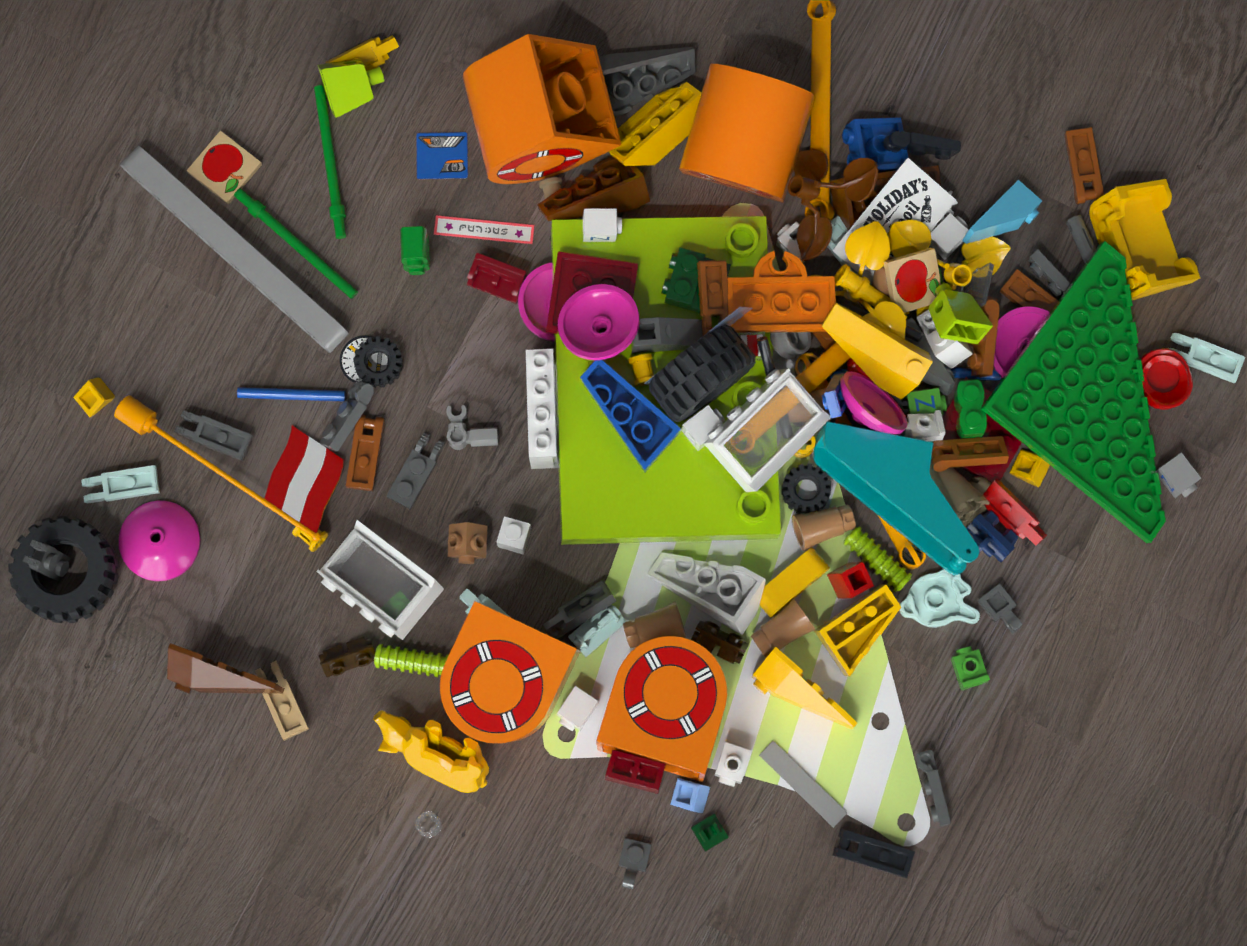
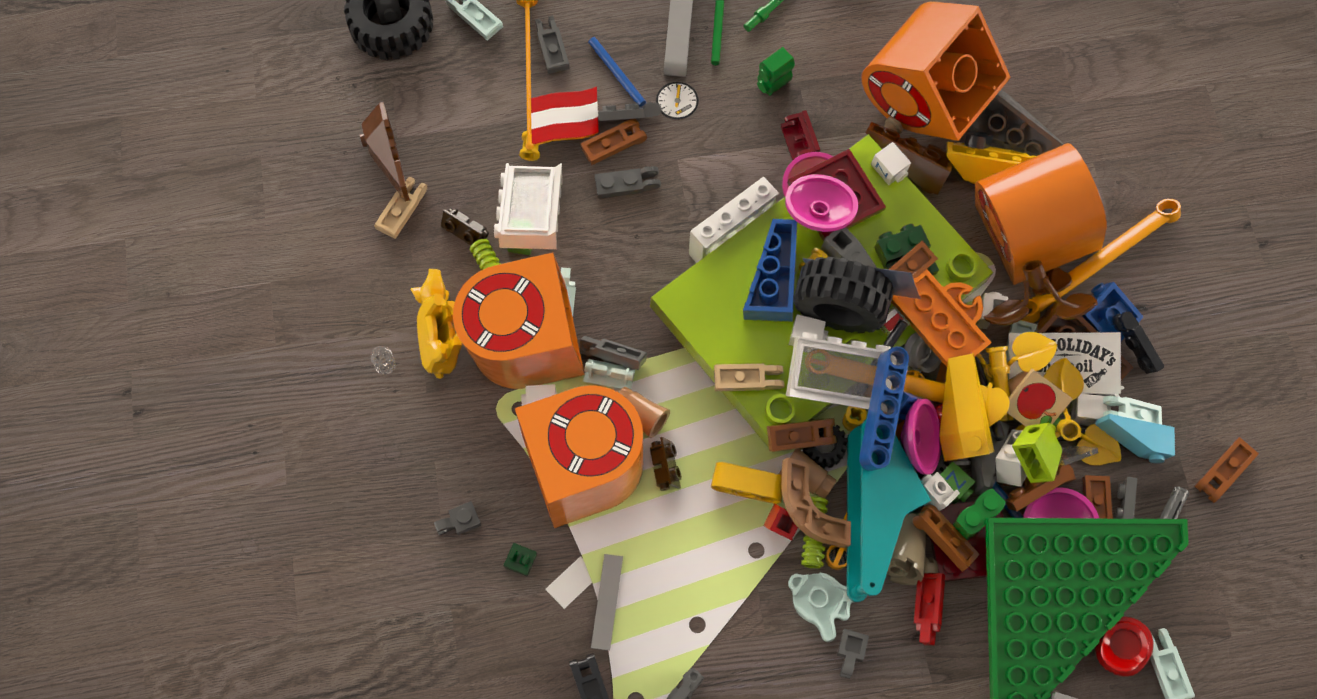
camera: 50 degrees right, 10 degrees down
(173, 552) = (455, 72): dark pink dish -> none
(374, 346) = (681, 94): black tyre -> none
(442, 155) = (853, 51): blue sticker -> none
(459, 437) = (673, 192): light grey bar -> none
(467, 542) = (602, 244): medium nougat brick -> none
(484, 229) = (827, 111): sticker -> none
(514, 535) = (631, 271): white brick -> none
(628, 121) = (978, 139): none -> black beam
(635, 771) = (523, 472): dark red hinge -> none
(690, 795) = (537, 526): light blue slope -> none
(702, 514) = (746, 377): none -> tan hinge
(718, 590) = (702, 436): white wedge -> none
(732, 764) = (582, 537): white brick -> none
(762, 804) = (570, 583): none -> white sticker
(782, 629) = (709, 501): medium nougat plant -> none
(785, 681) = (671, 535): yellow wedge -> none
(789, 505) = (801, 434): none -> dark orange plate
(831, 434) = (876, 418): none -> blue beam
(856, 556) = (804, 512): none -> medium nougat plate
(857, 627) = (752, 553): yellow wedge -> none
(966, 678) = (784, 669): bright green brick -> none
(980, 200) = (1134, 409): none -> light aqua hinge
(989, 538) = (895, 604): dark blue hips -> none
(1029, 468) = (973, 596): yellow slope -> none
(1135, 226) = (1217, 540): yellow windscreen -> none

